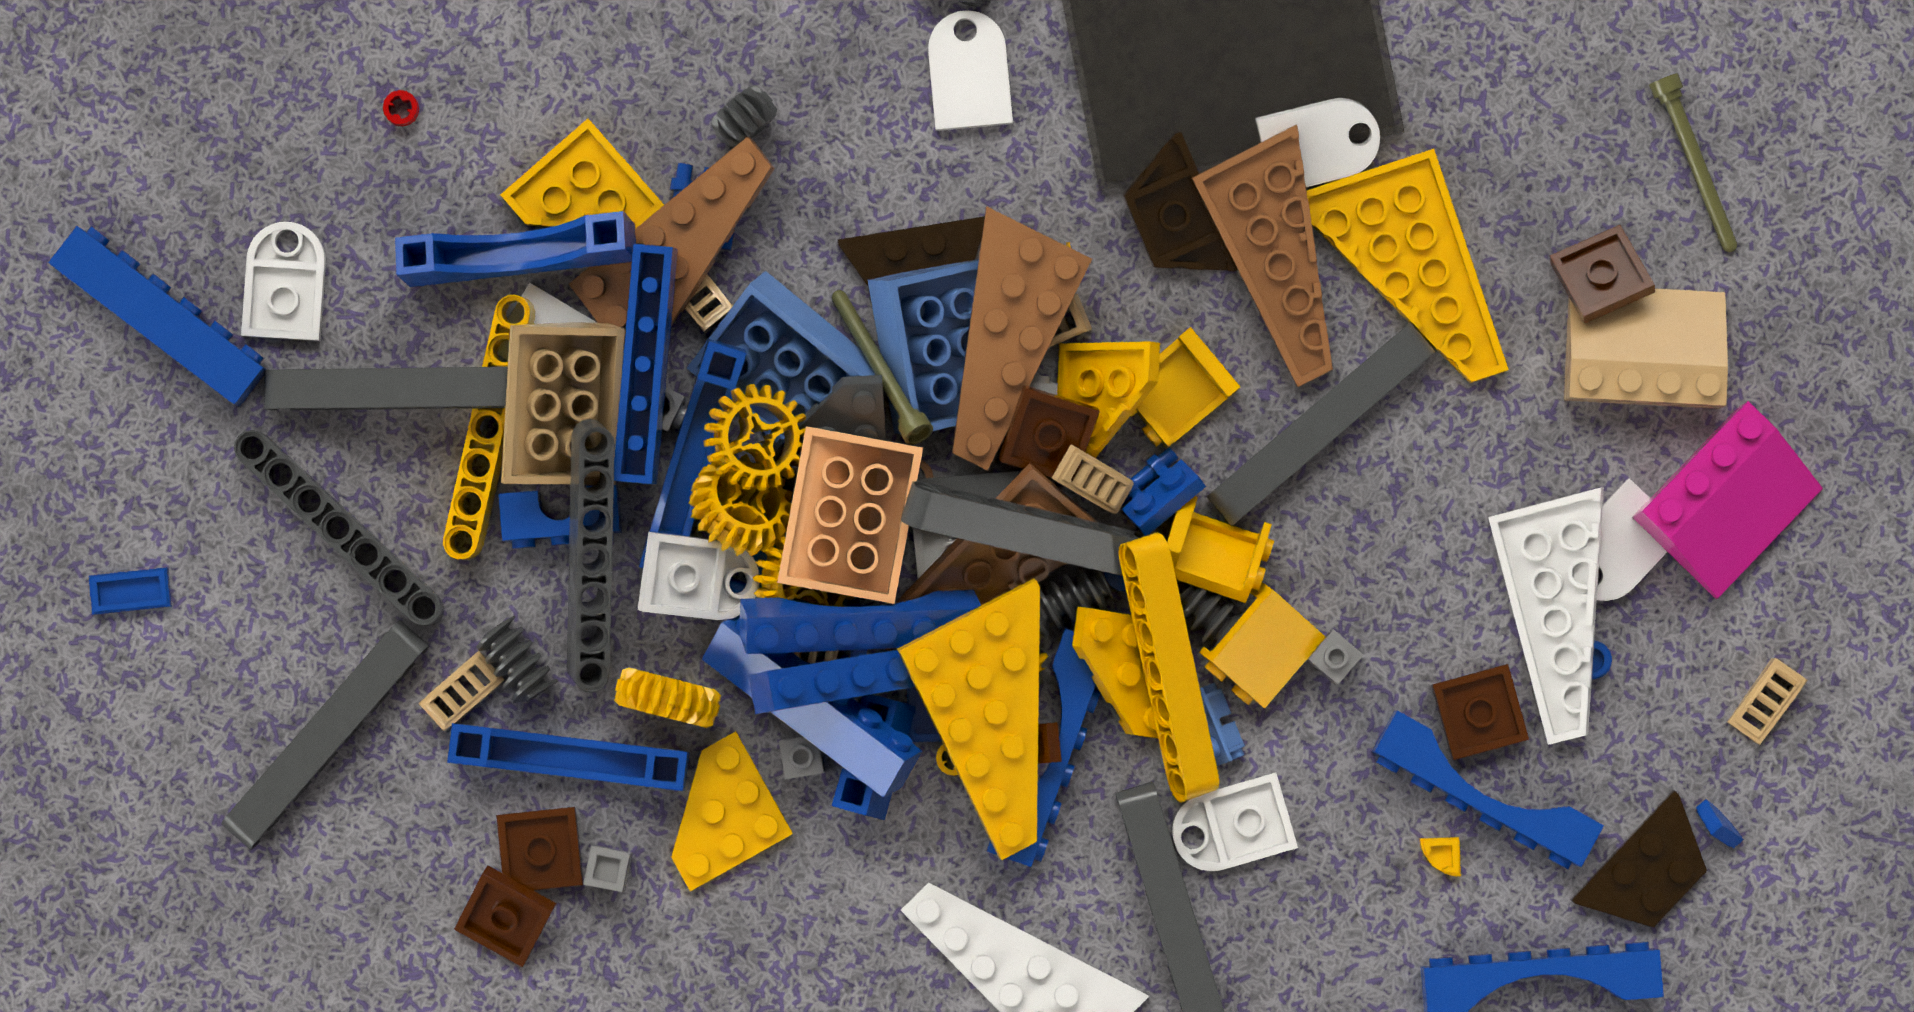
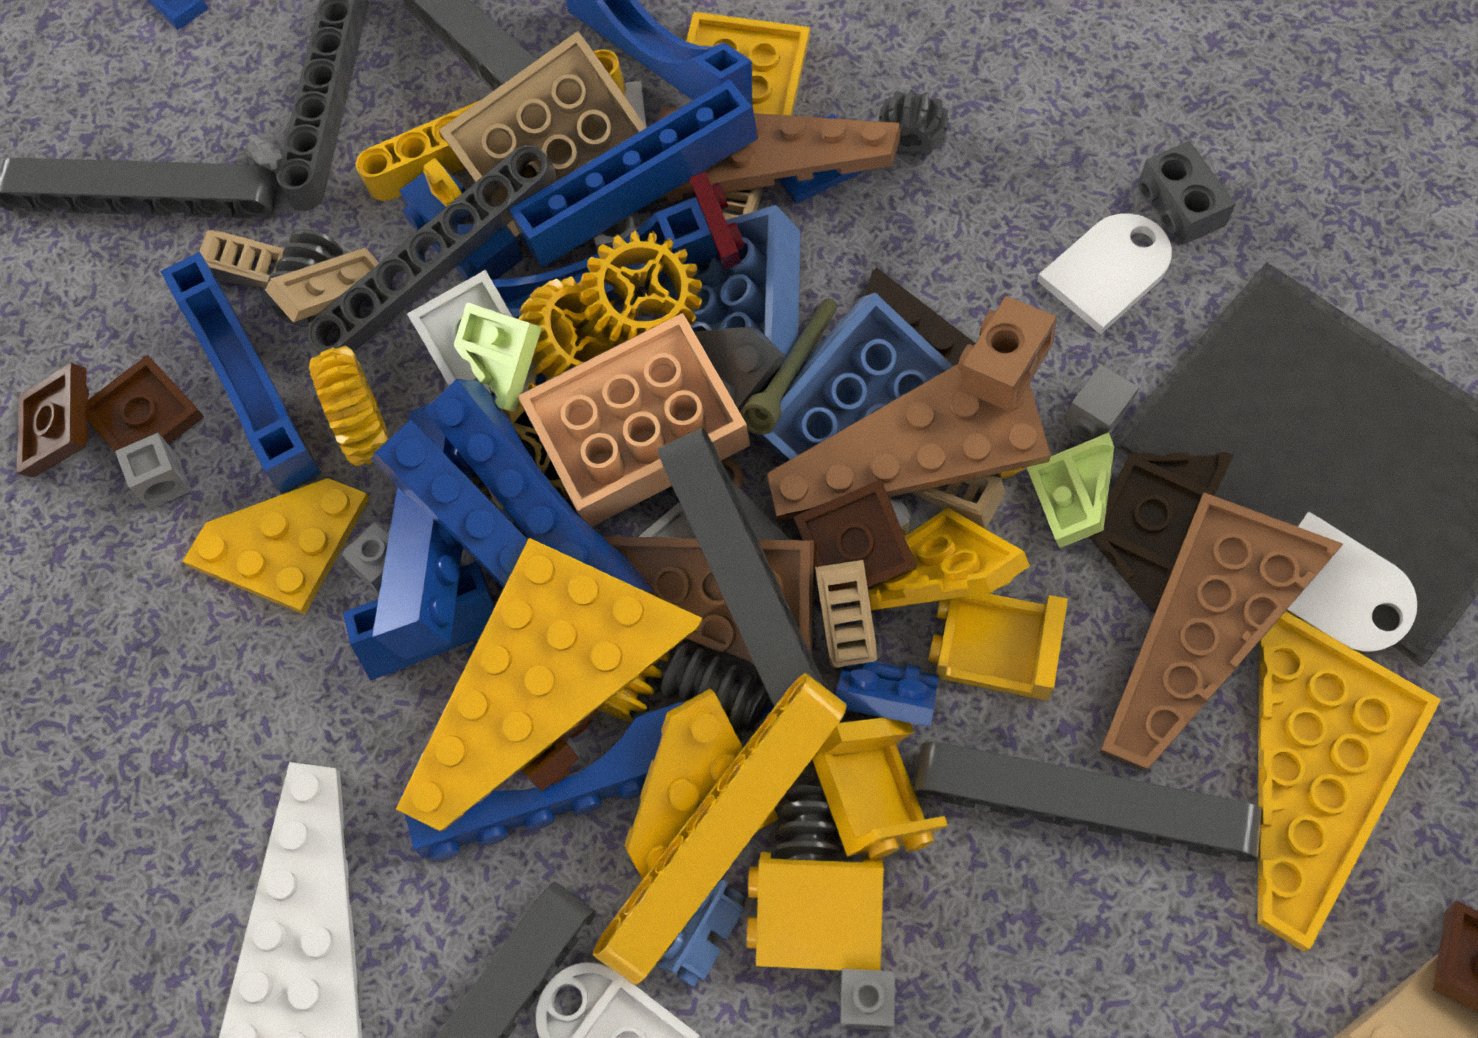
camera: 60 degrees right, 20 degrees down
(375, 618) = (262, 152): none -> light grey axle
(539, 508) = (440, 182): none -> yellow tile
(551, 646) = (318, 285): none -> tan plate
(720, 333) = (712, 202): none -> dark red wing
(727, 570) = (498, 351): none -> yellowish green wing
(1023, 250) = (1005, 376): none -> medium nougat brick
(1071, 179) = (1101, 404): none -> light grey brick
(1119, 251) = (1075, 489): none -> yellowish green wing

